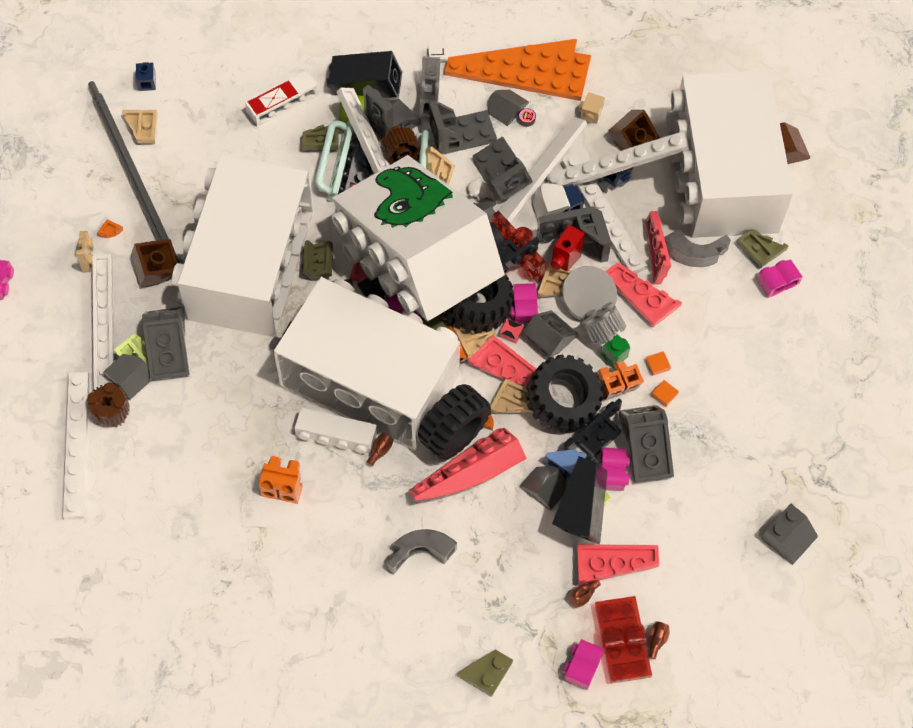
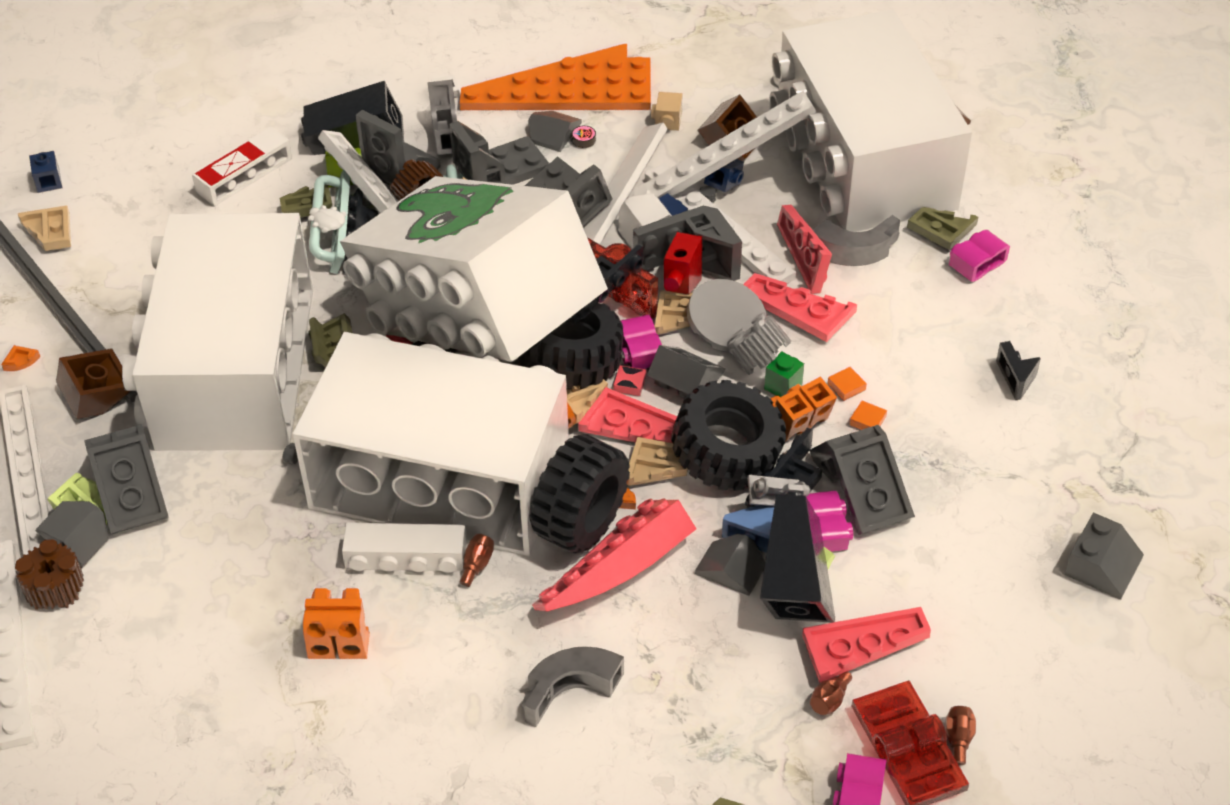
camera: 10 degrees left, 15 degrees down
(331, 159) = (326, 218): none -> white piece
(584, 443) = (764, 489): none -> light grey hinge
(776, 379) = (1017, 372): none -> black slope

